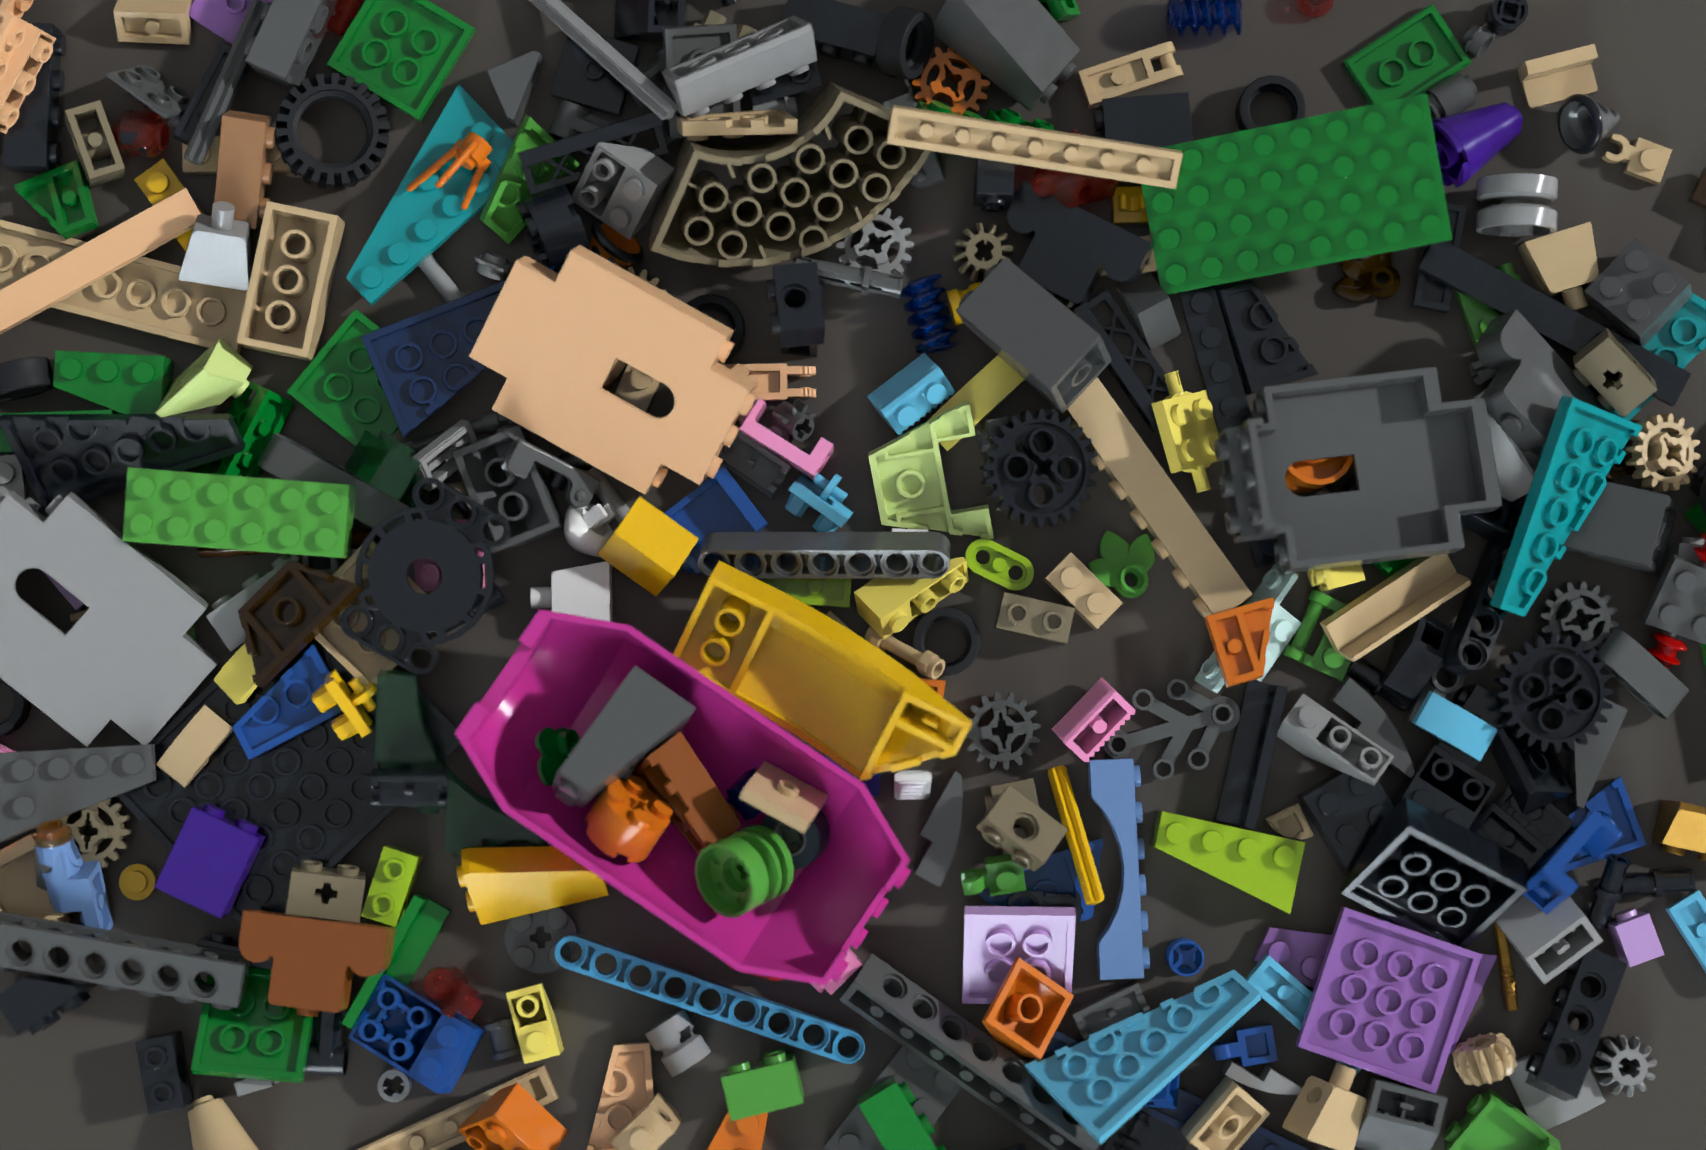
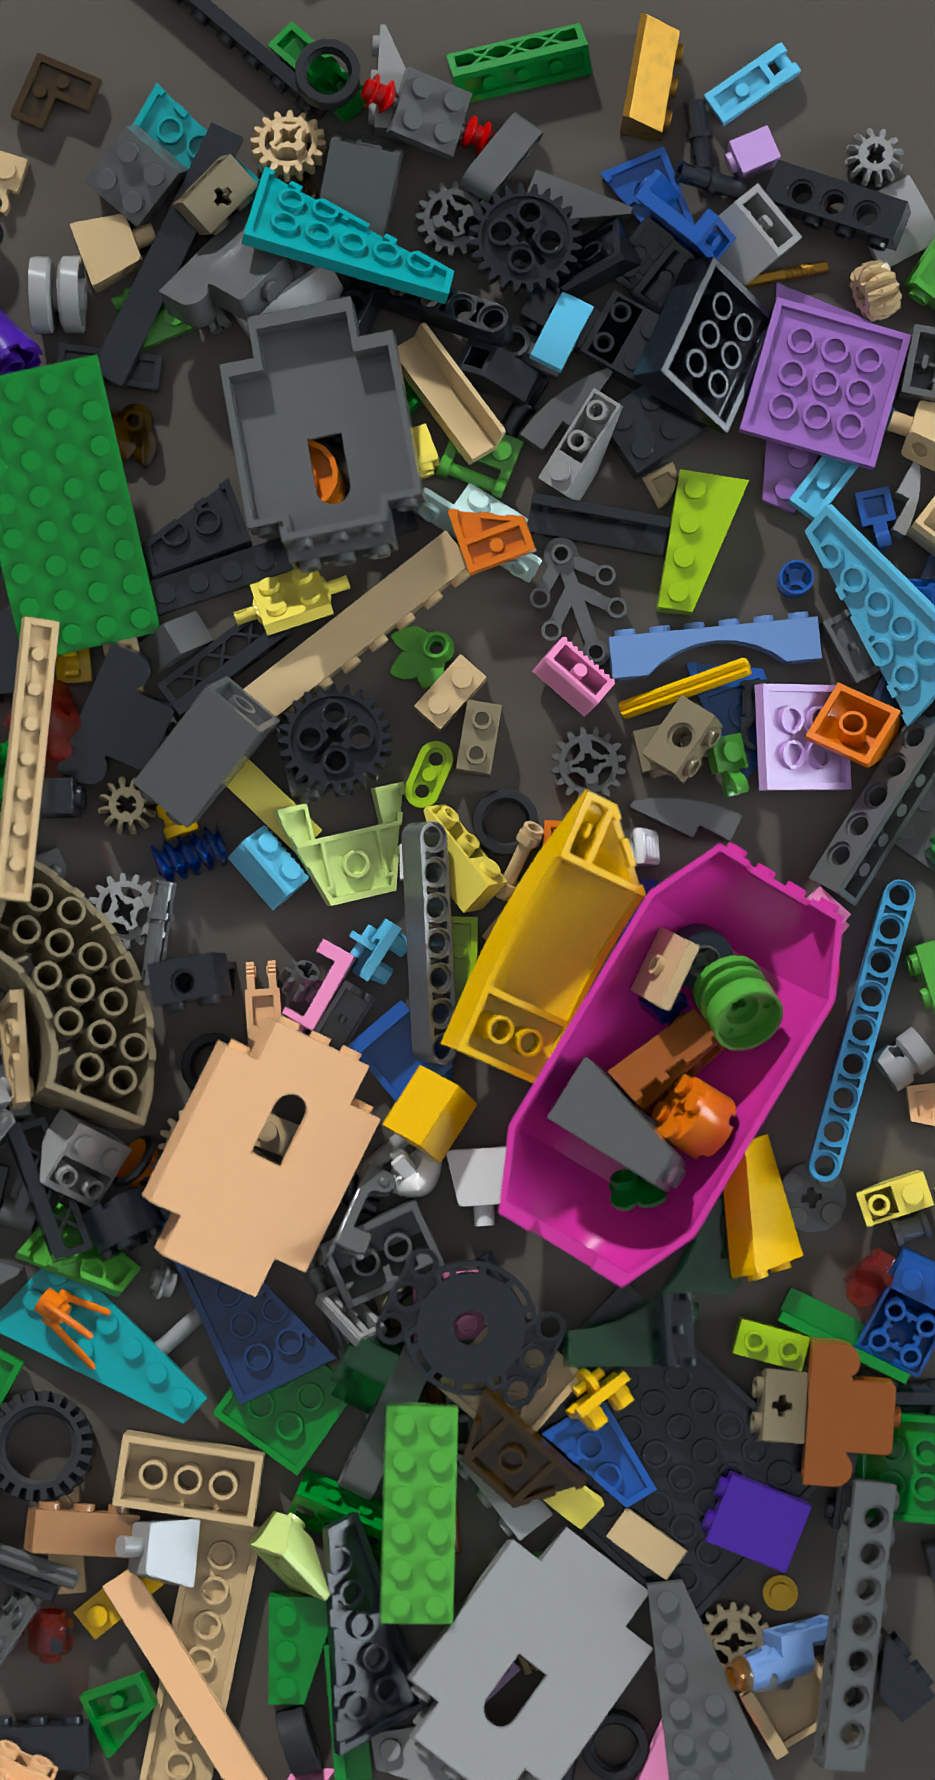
camera: 90 degrees left, 0 degrees up
(94, 143) = (62, 1679): dark tan brick -> none

